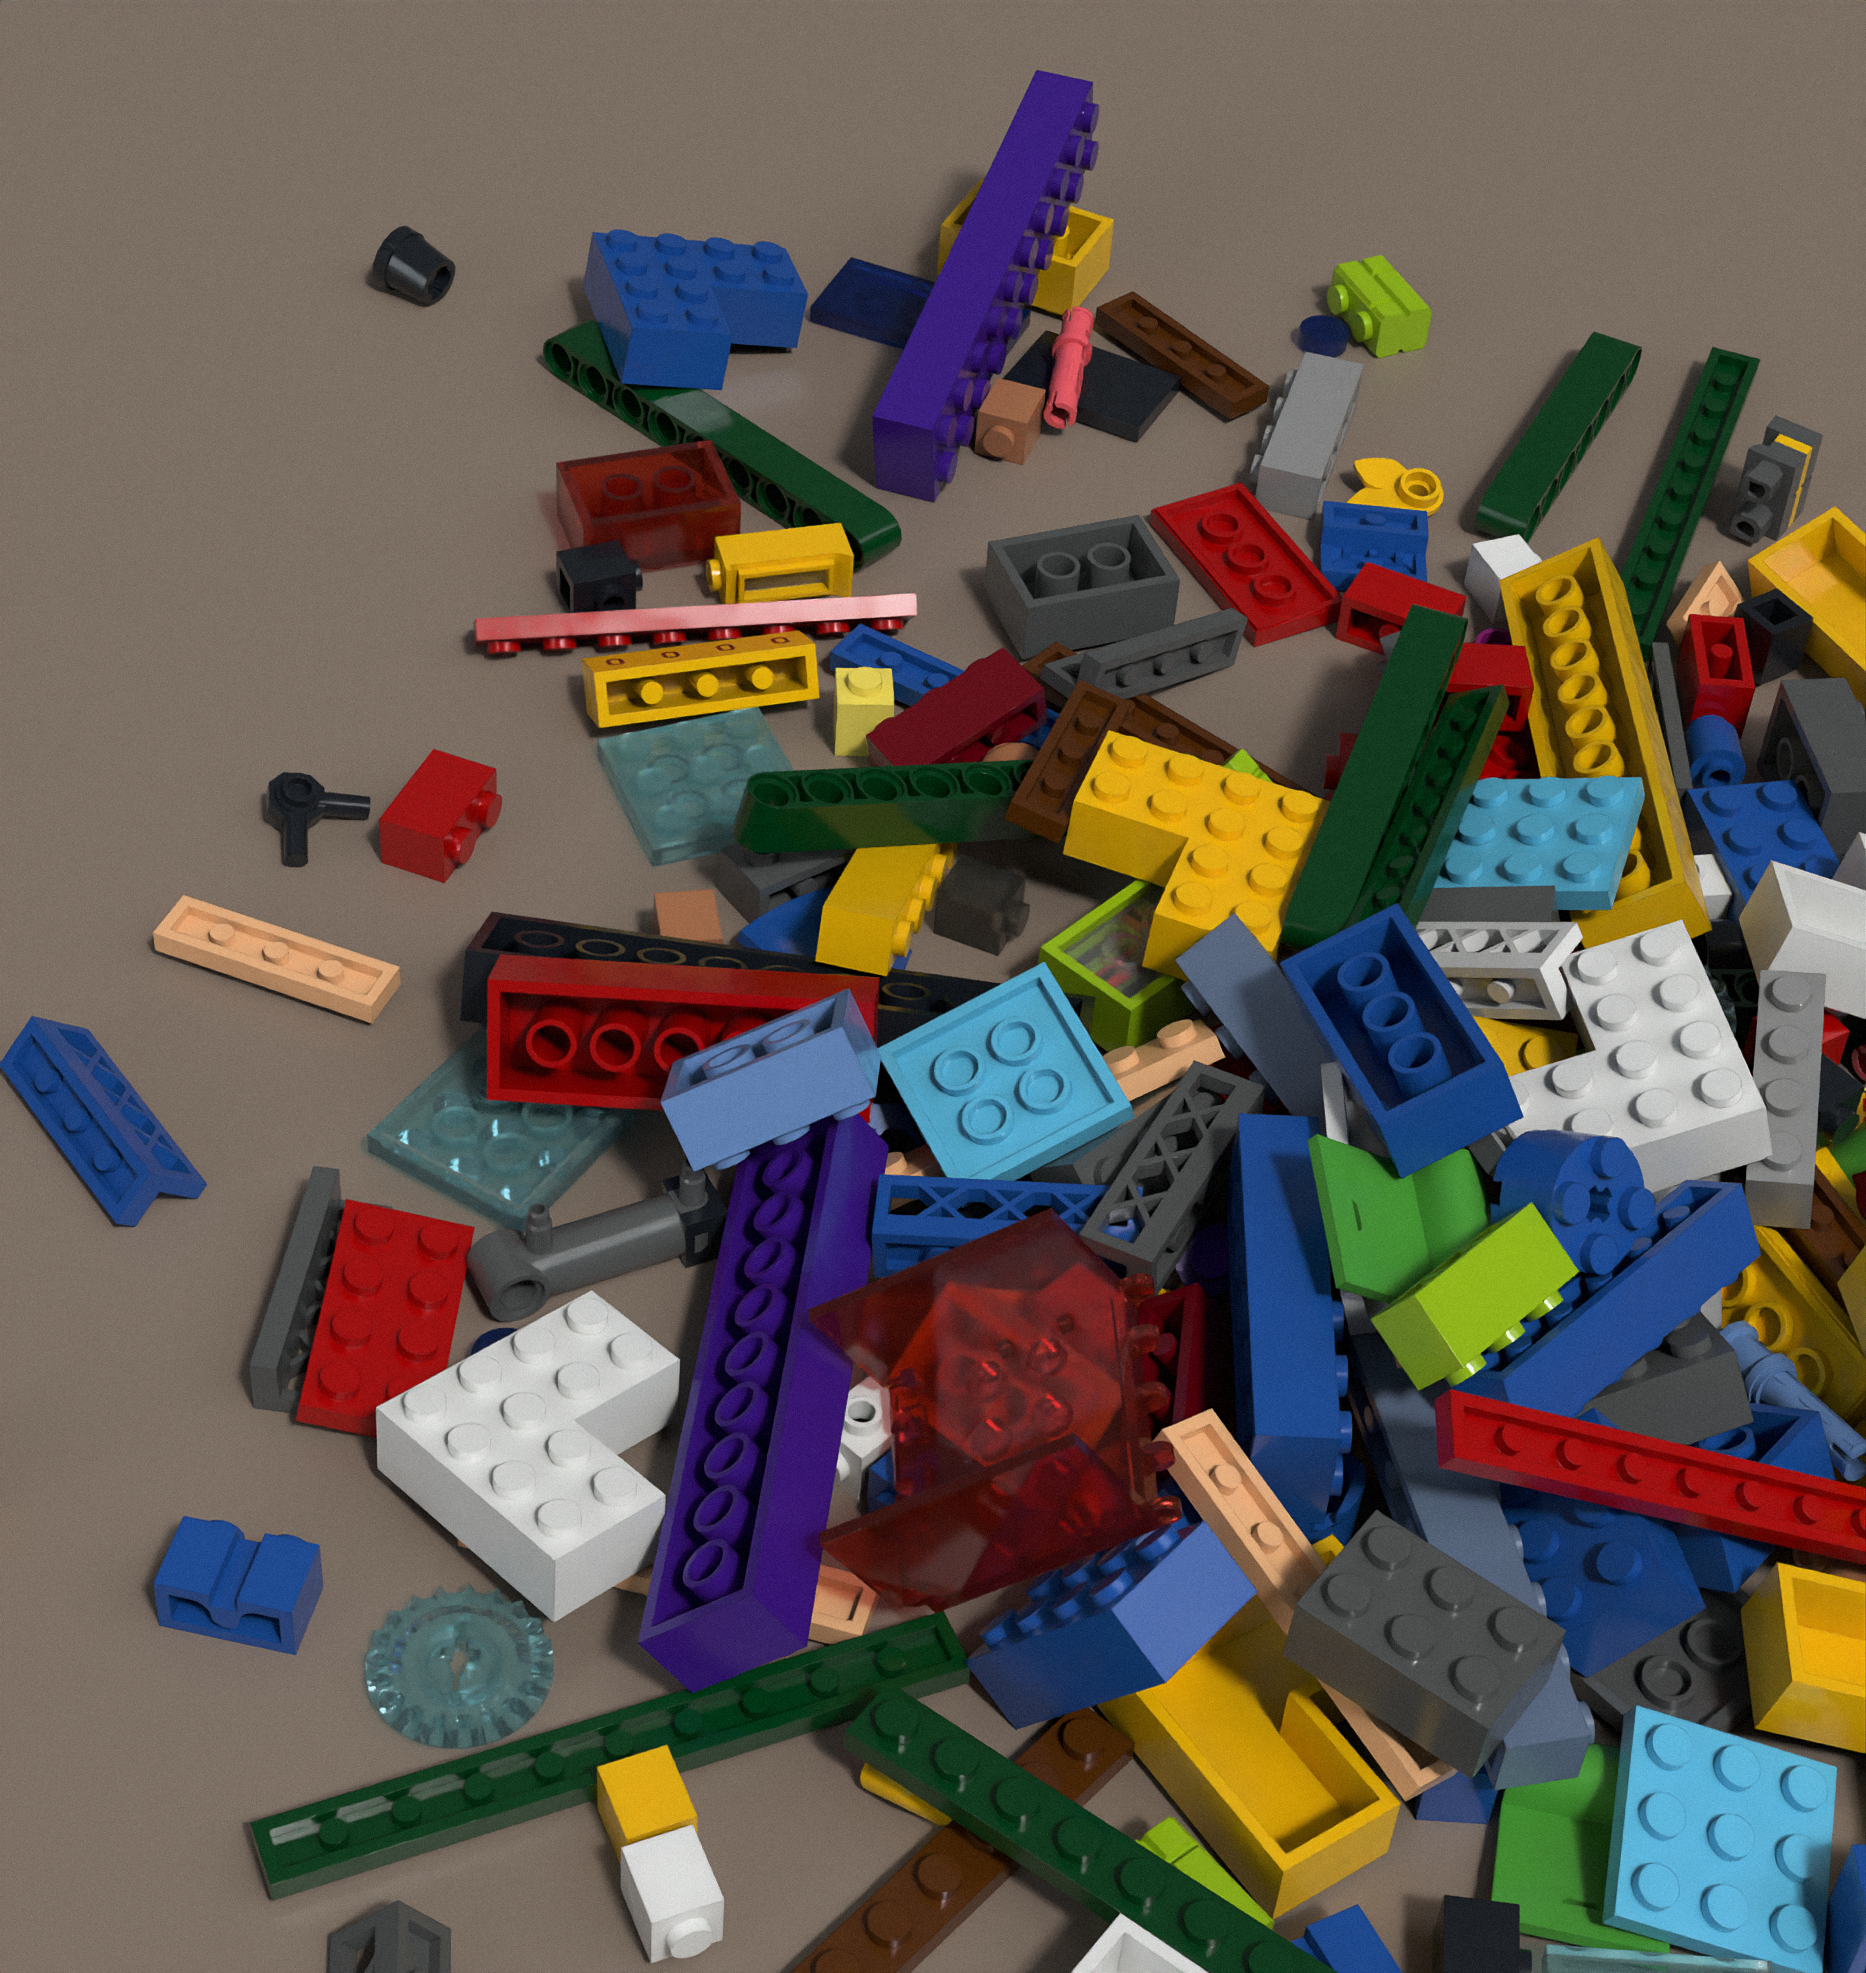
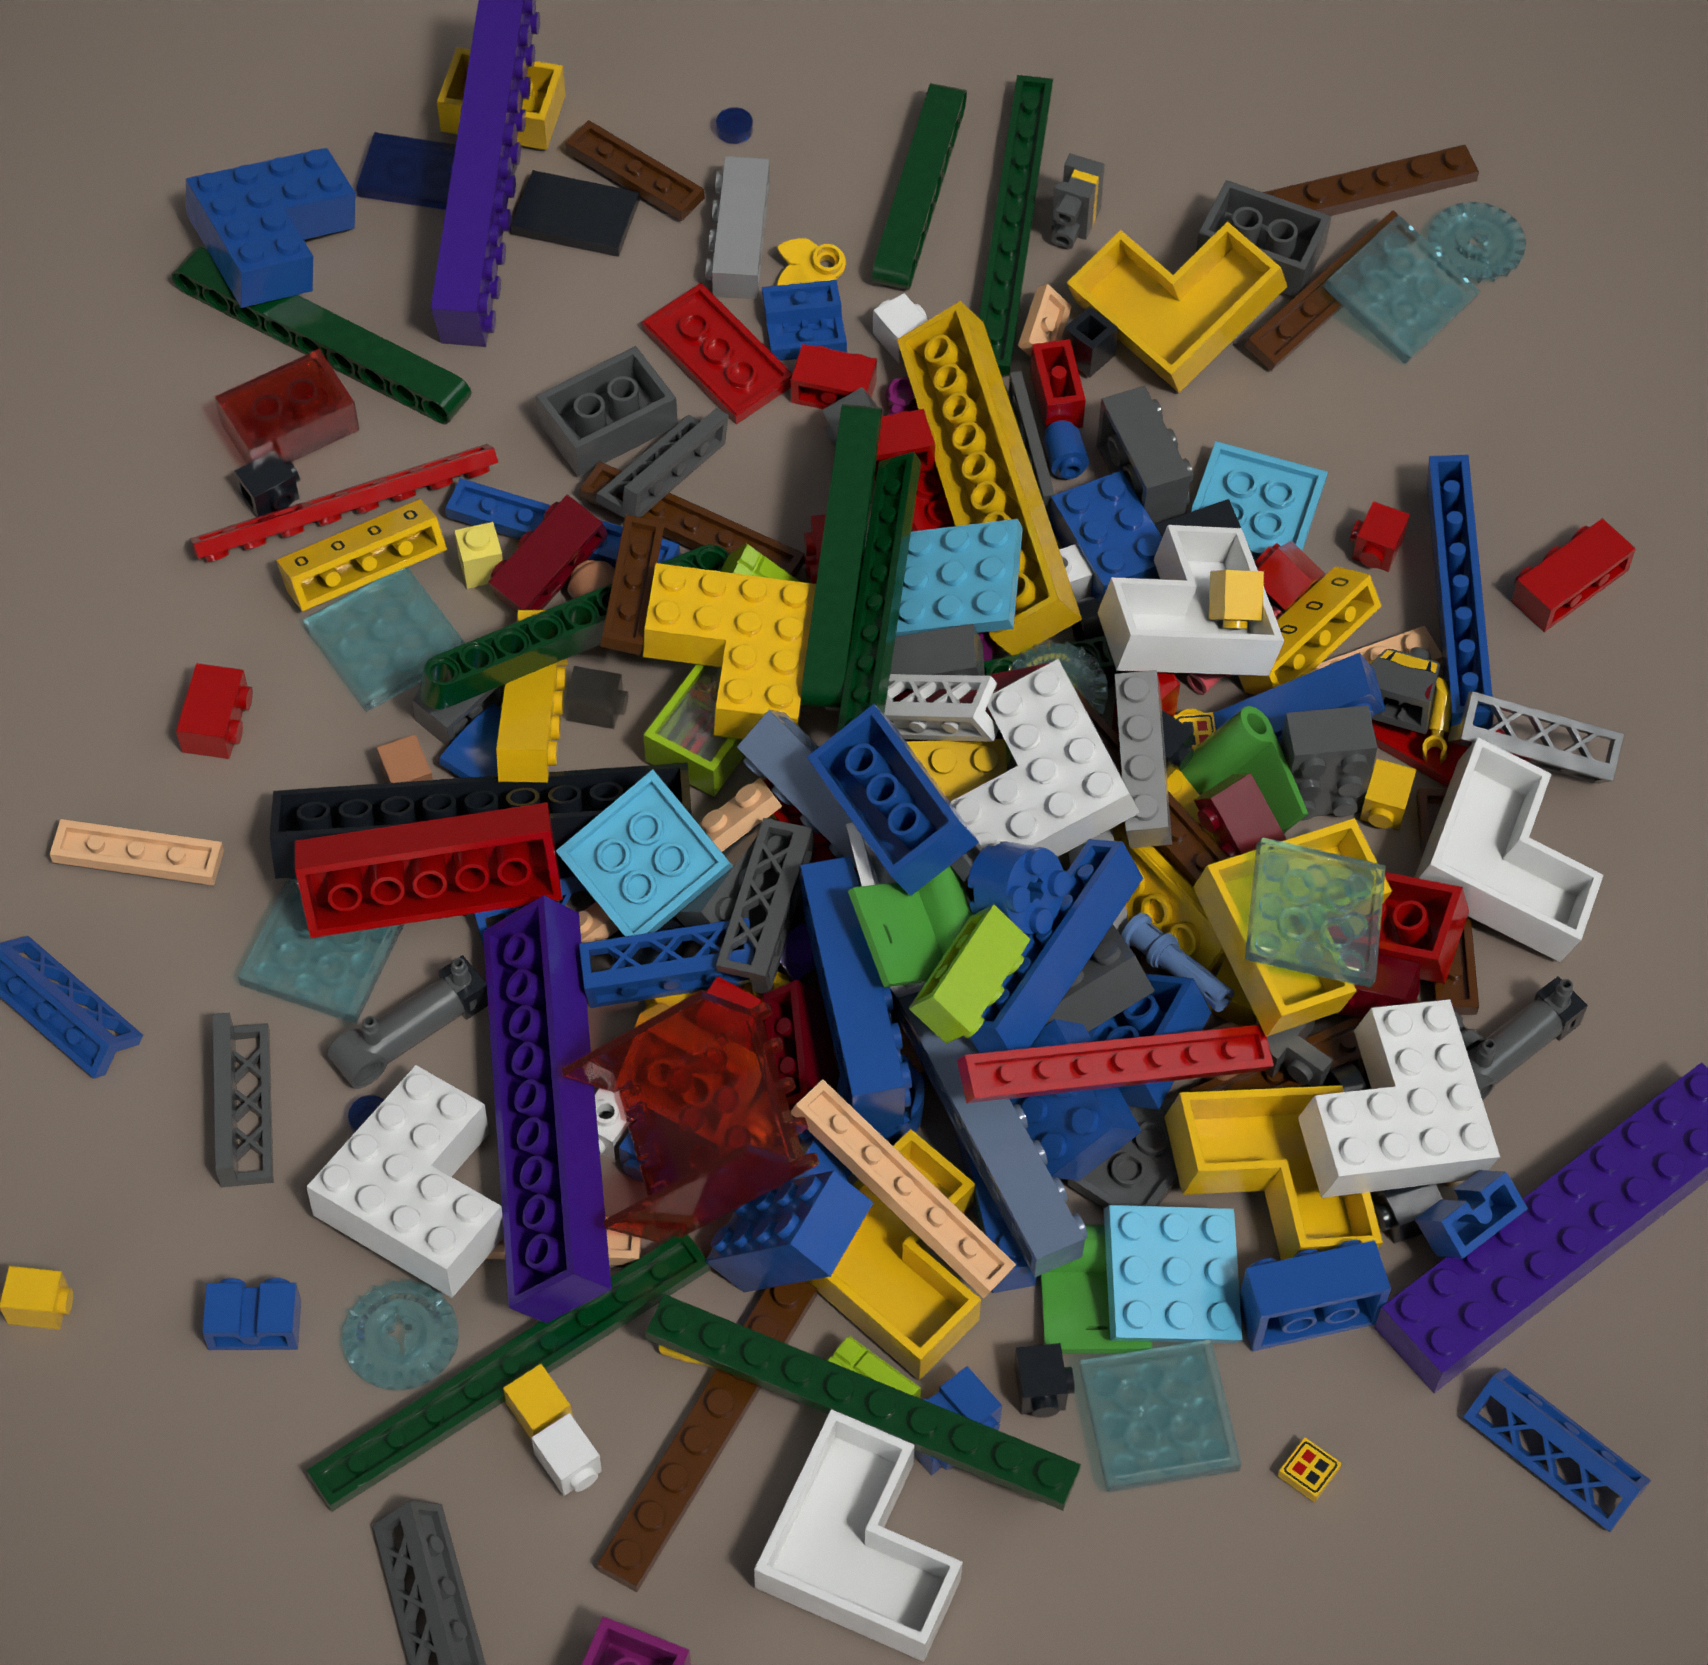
camera: 10 degrees left, 15 degrees up
(299, 803) = (113, 723): black piece -> none
(383, 1314) = (287, 1107): red plate -> none
(413, 266) = (56, 221): black piece -> none
(772, 1082) = (497, 900): medium blue brick -> none
(781, 565) = (392, 438): yellow window -> none
(1009, 421) = (524, 265): nougat brick -> none
(1071, 355) = (557, 197): coral pin -> none
(1379, 306) = (770, 91): lime brick -> none
(1423, 1643) = (976, 1209): dark grey brick -> none

